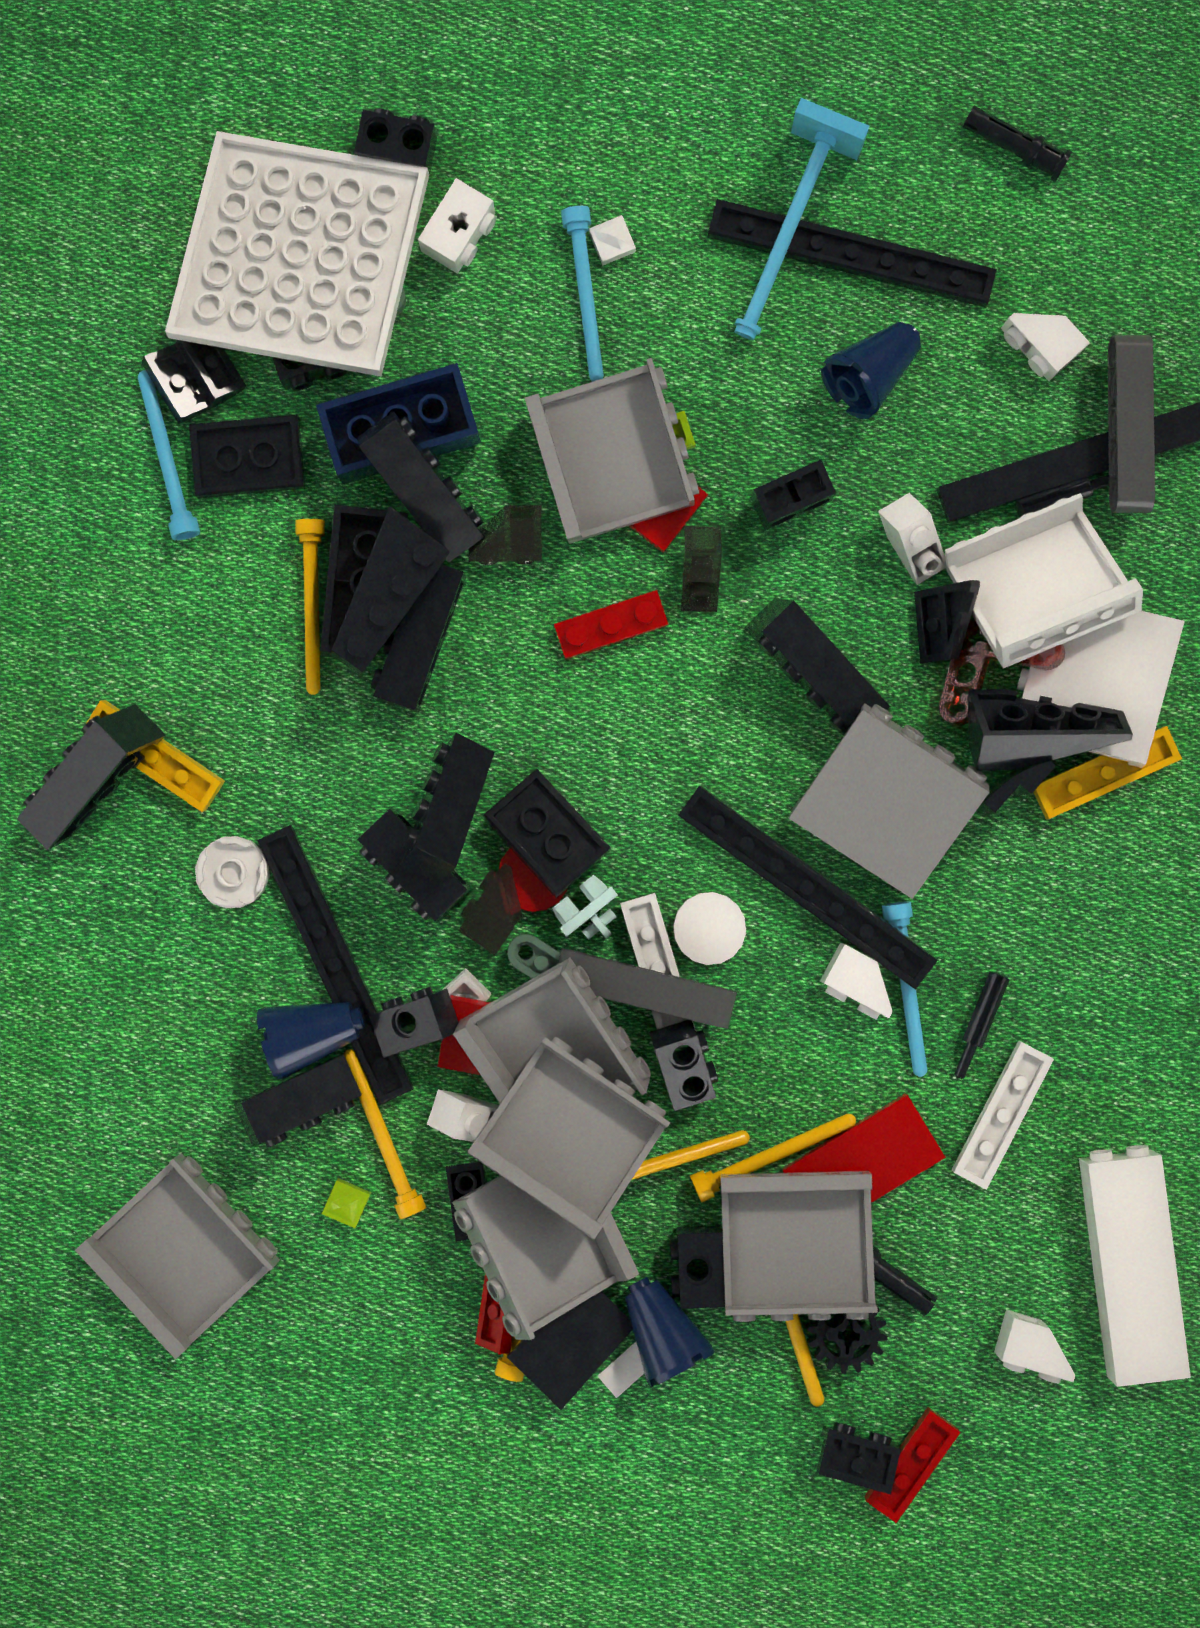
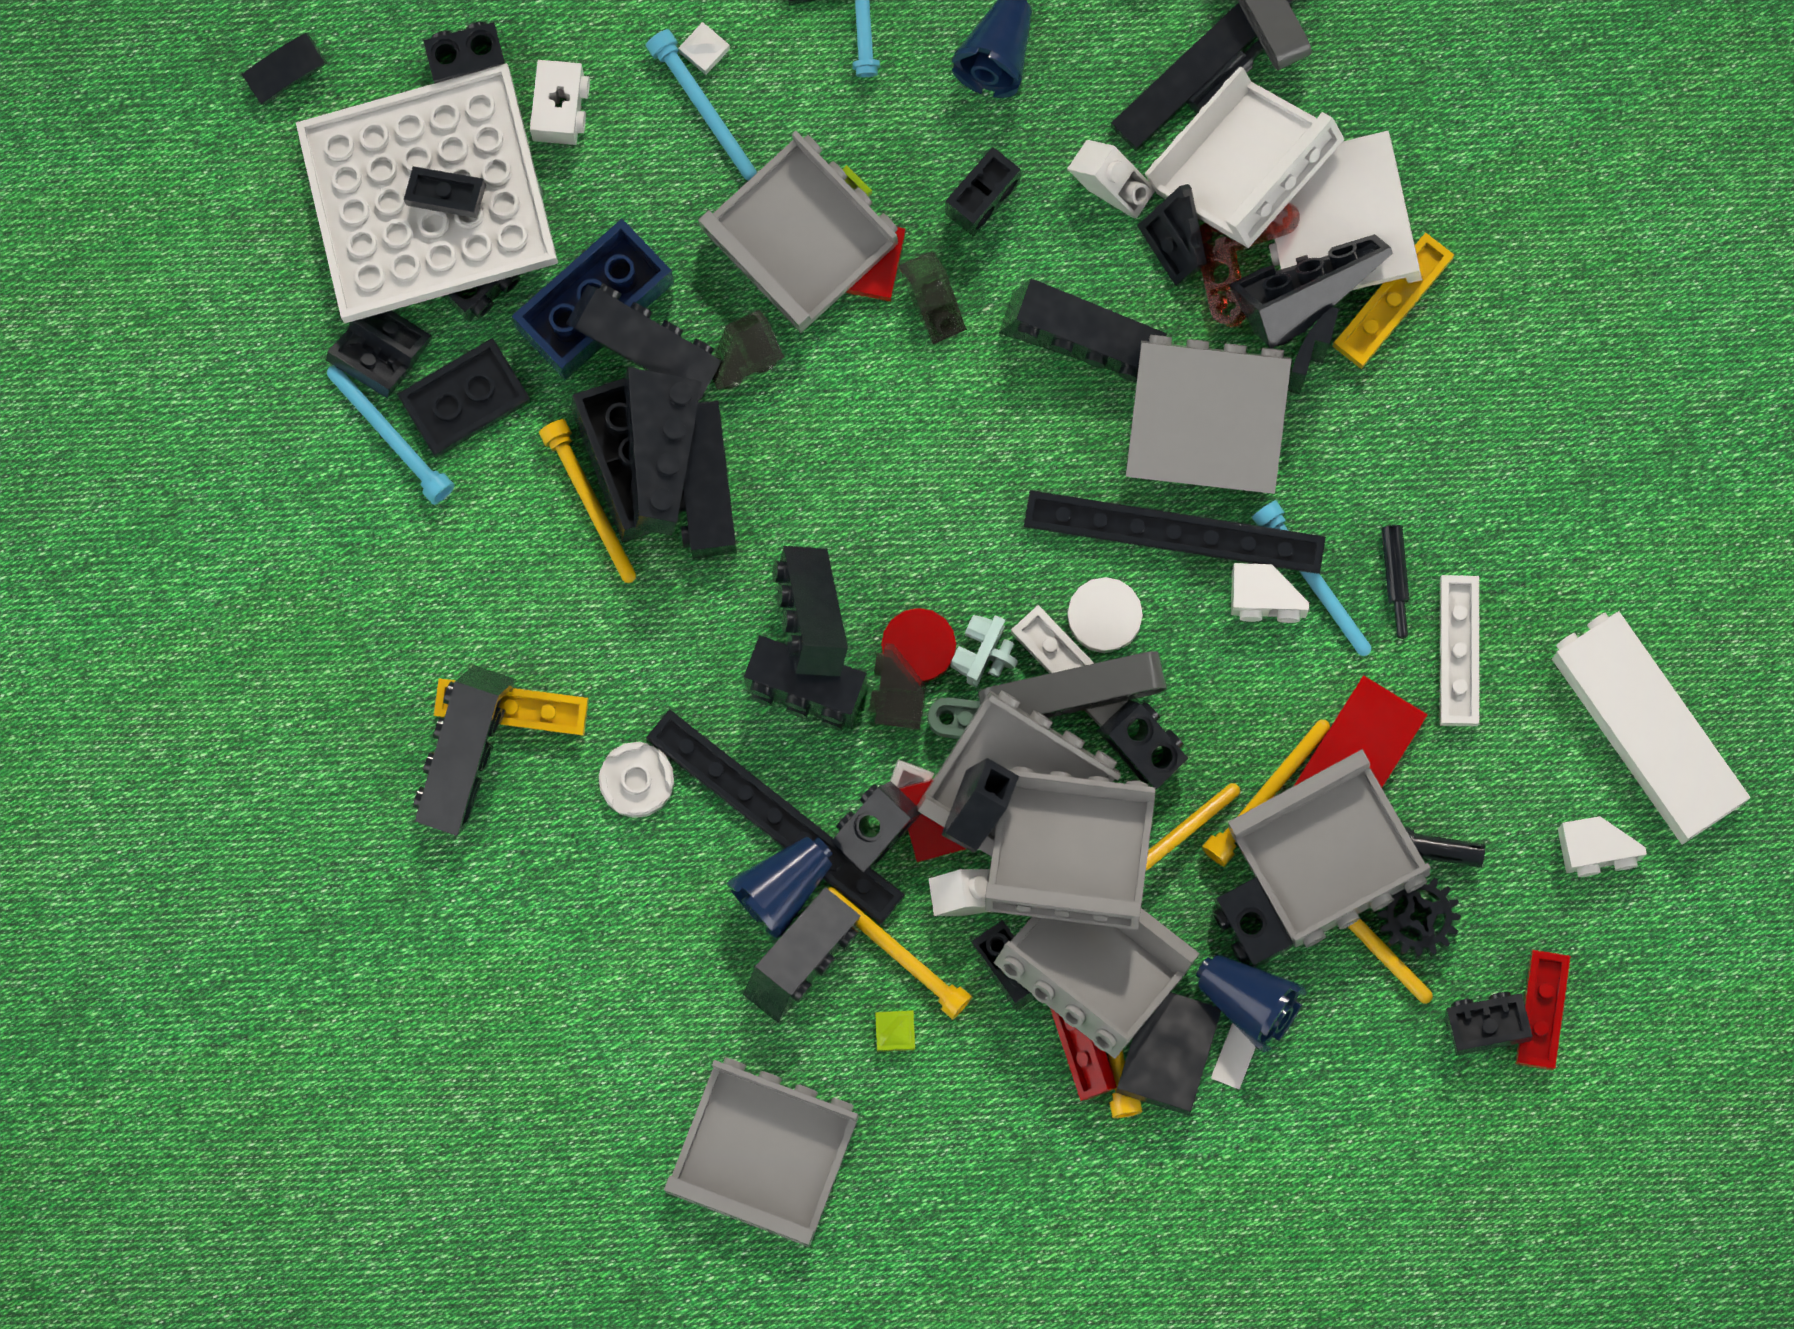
camera: 25 degrees left, 10 degrees down
(231, 75) = (284, 68): none -> black slope
(310, 260) = (444, 192): none -> black plate
(507, 1059) = (979, 803): none -> black slope
(546, 833) = (911, 599): black tile -> none
(611, 624) = (875, 387): red plate -> none

